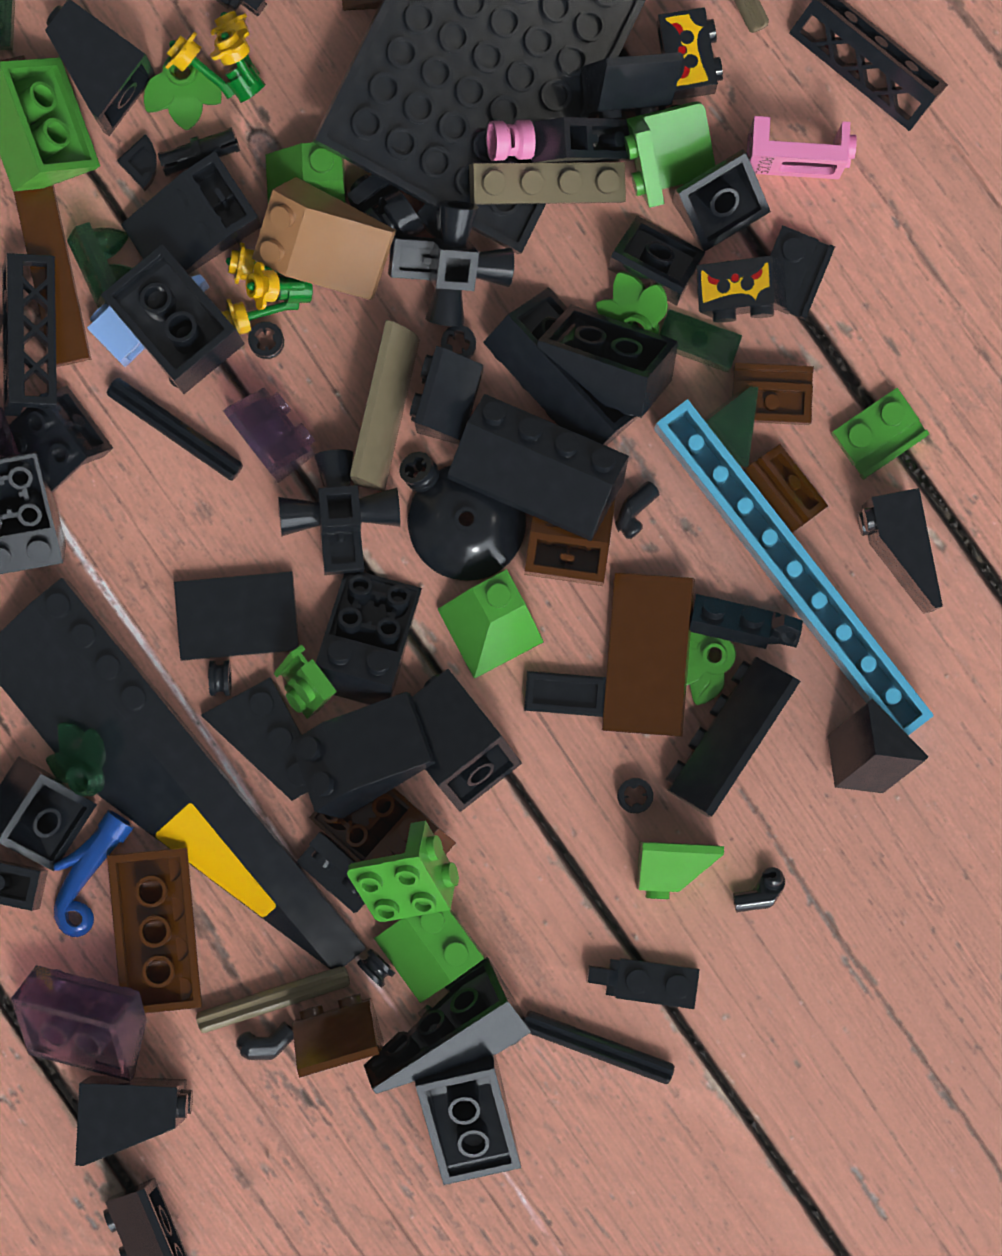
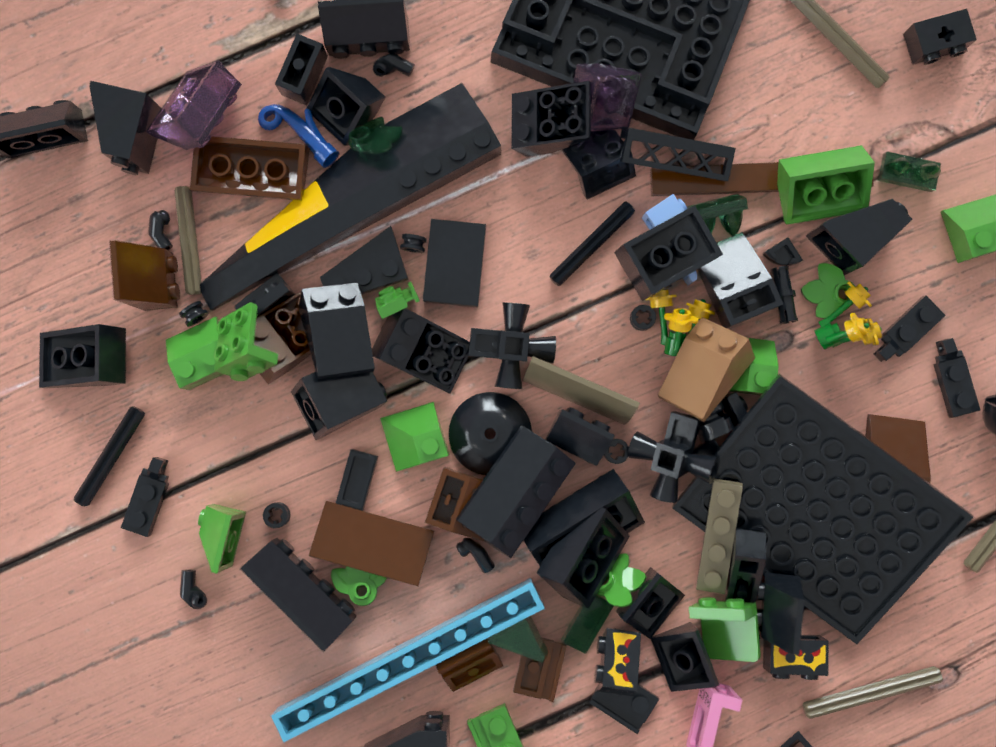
camera: 100 degrees right, 0 degrees up
(270, 433) = (576, 307): clear purple slope -> none
(425, 479) = (523, 408): black bush -> none
(465, 1026) = (135, 357): black wedge -> none
(510, 140) = (755, 516): bright pink wheel -> none
(743, 623) = (380, 615): black hinge -> none
(872, 751) = (271, 690): black slope -> none

